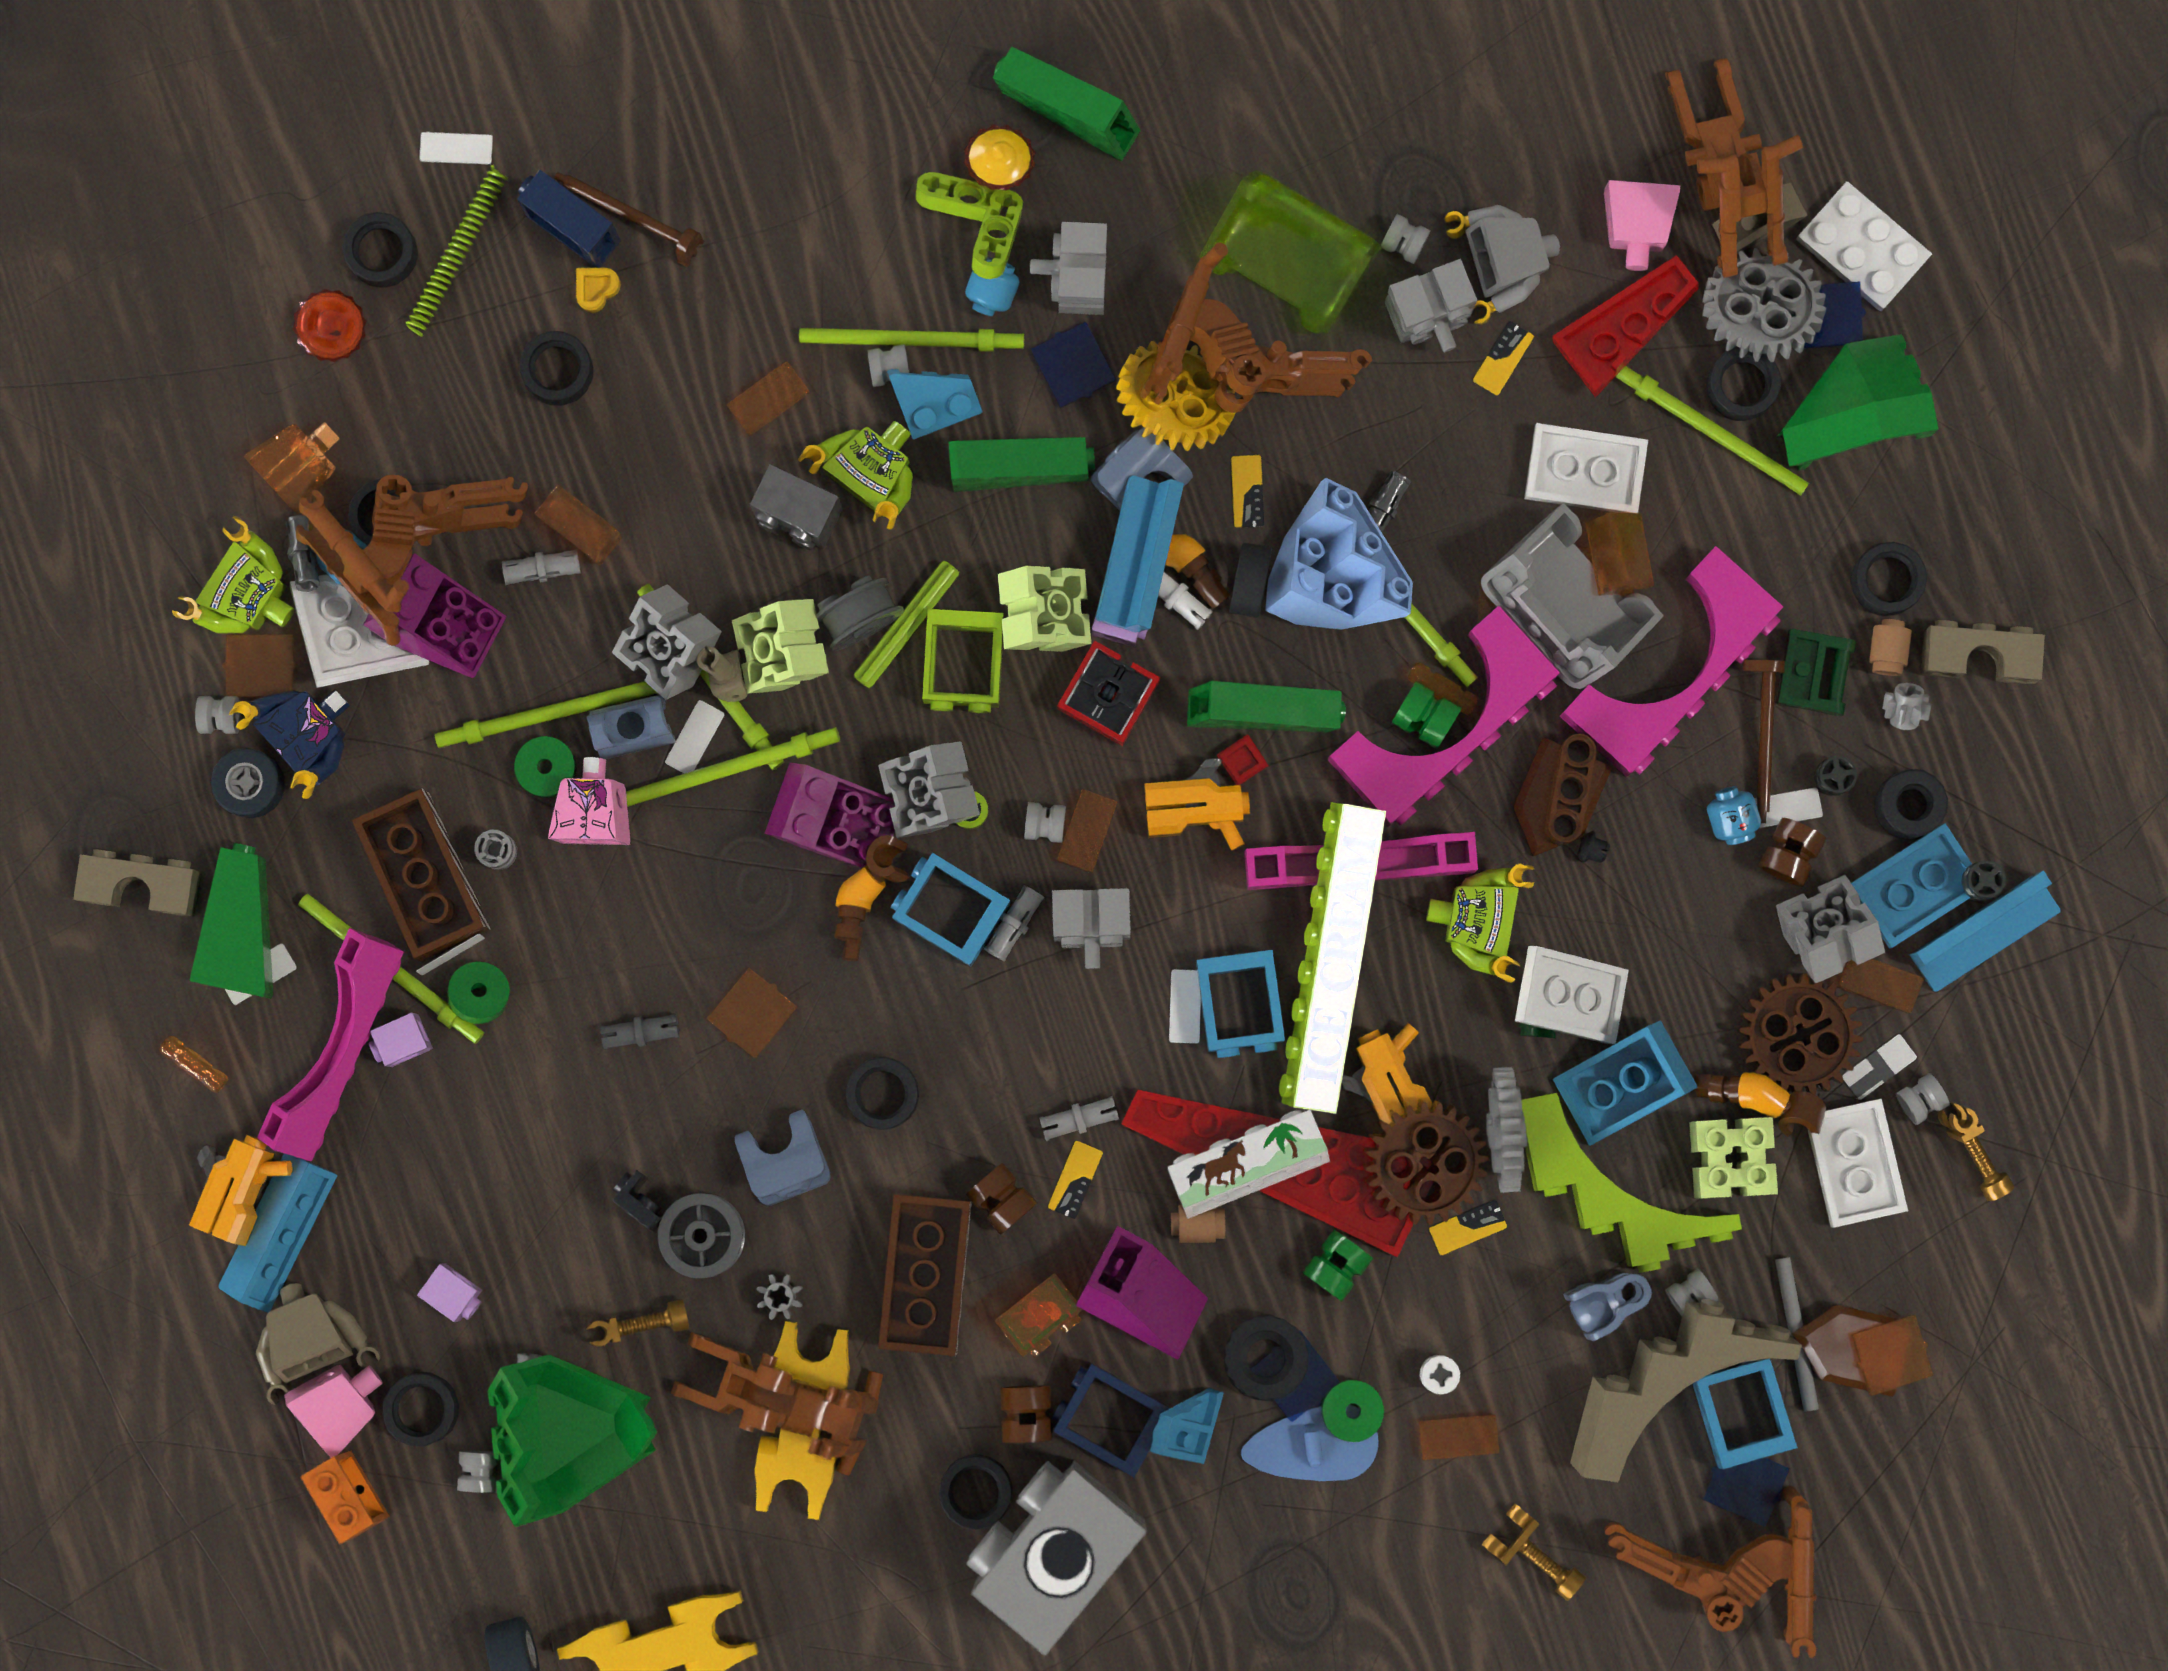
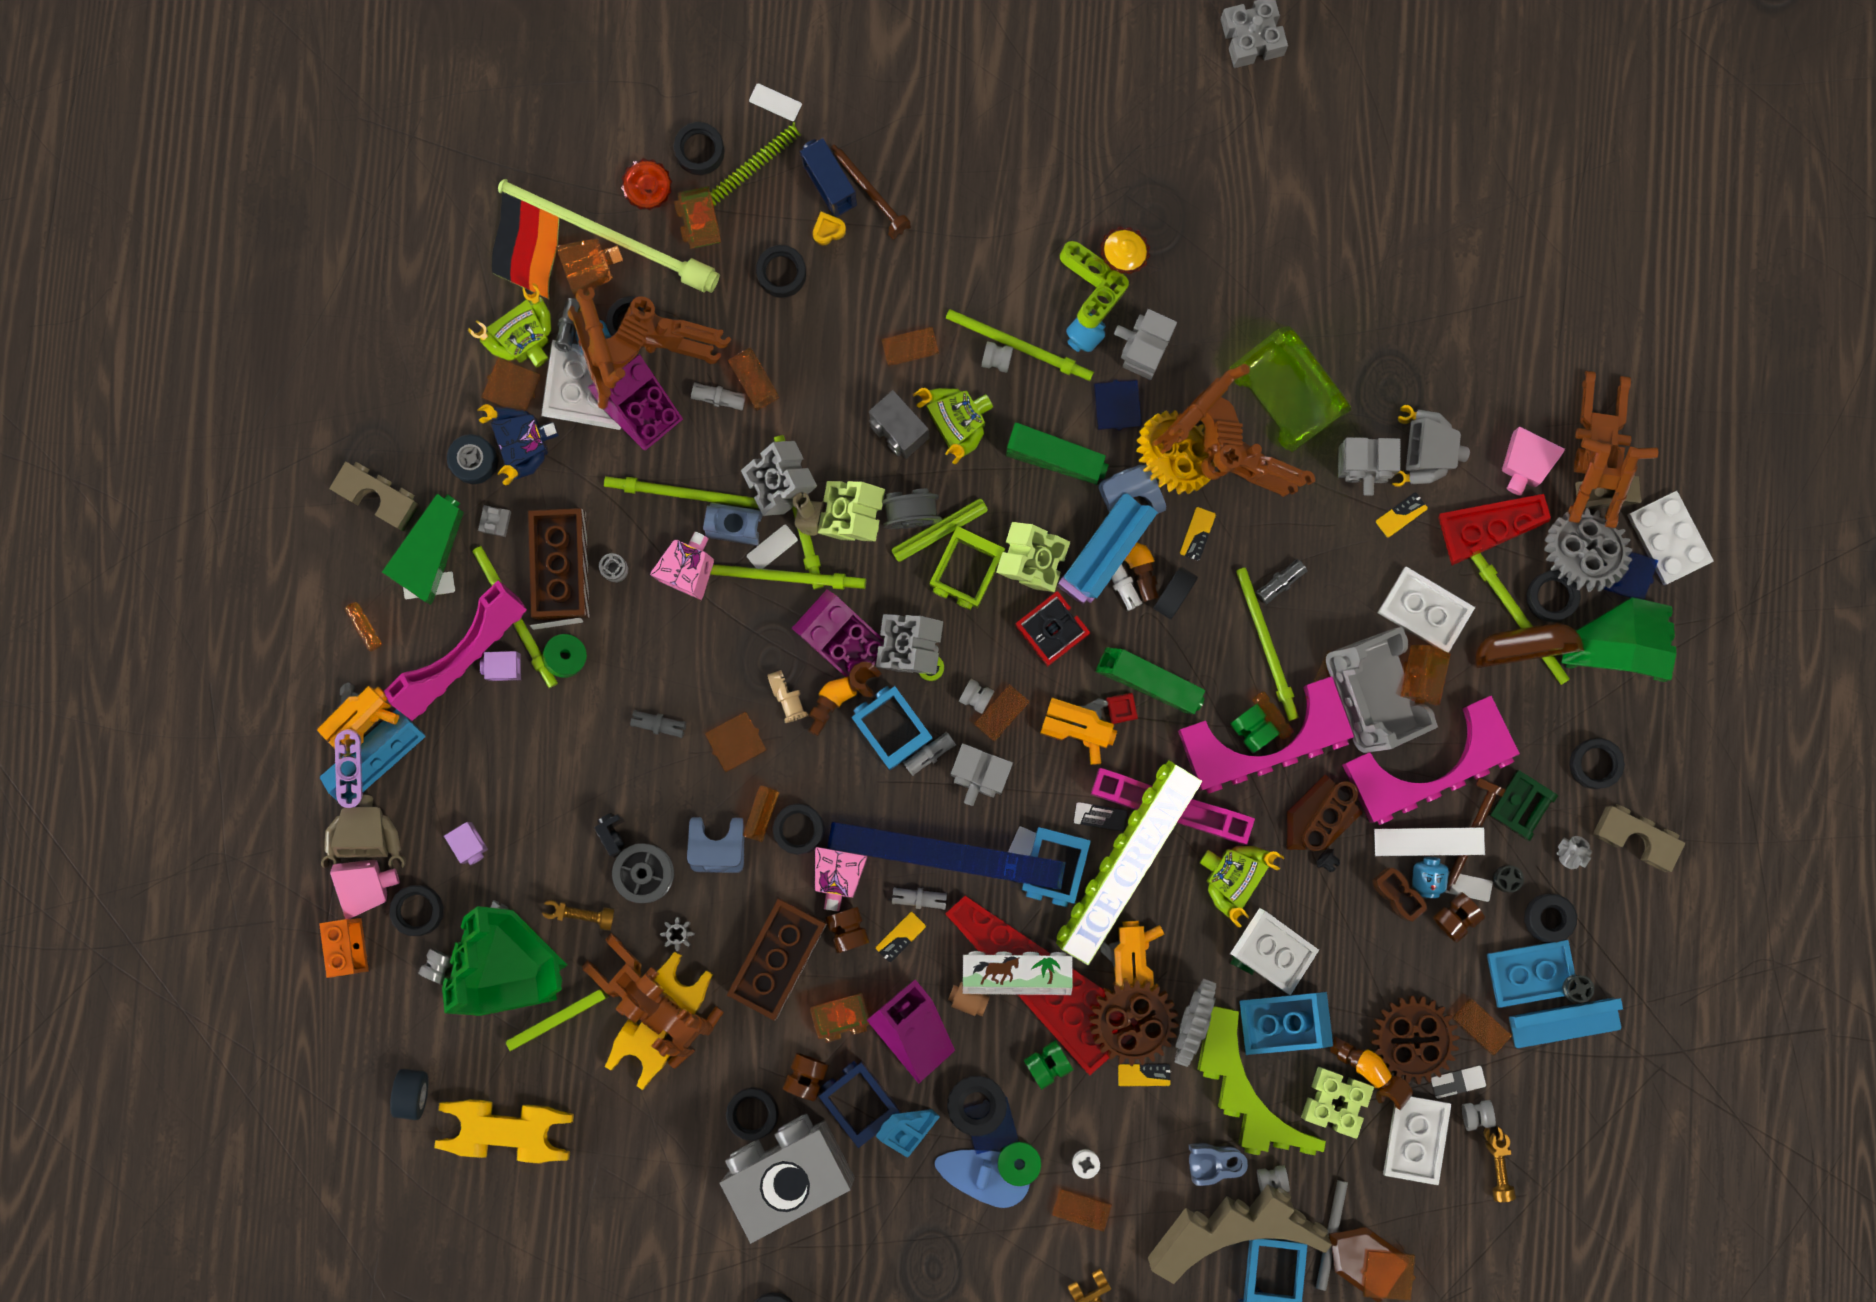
camera: 25 degrees right, 0 degrees up
(203, 461) = (529, 239): none -> flag
(214, 715) = (468, 405): light grey wheel -> none
(256, 1288) = (355, 788): none -> lavender beam
(311, 853) = (494, 521): none -> light grey tile
(418, 340) = (699, 217): none -> clear orange brick
(530, 758) = (659, 518): green piece -> none
(666, 1475) = (556, 1019): none -> lime tile
(802, 929) = (790, 701): none -> tan connector
(824, 1093) = (761, 813): none -> clear orange tile
(933, 400) = (1017, 391): dark azure wing -> none
(959, 1132) = (837, 875): none -> bright pink torso
(1068, 102) = (1184, 232): green slope -> none
(1091, 1047) = (946, 855): none -> clear blue beam
(1272, 914) = (1100, 816): none -> sticker
(1337, 566) = (1236, 607): light blue brick -> none
(1414, 238) = (1372, 415): light grey wheel -> none
(1712, 859) = (1403, 900): none -> reddish brown brick
(1714, 769) = (1429, 841): none -> white tile
(1736, 460) = (1528, 644): none -> reddish brown brick
(1830, 929) = (1463, 979): light grey brick -> none
(1890, 647) = (1579, 809): medium nougat brick -> none

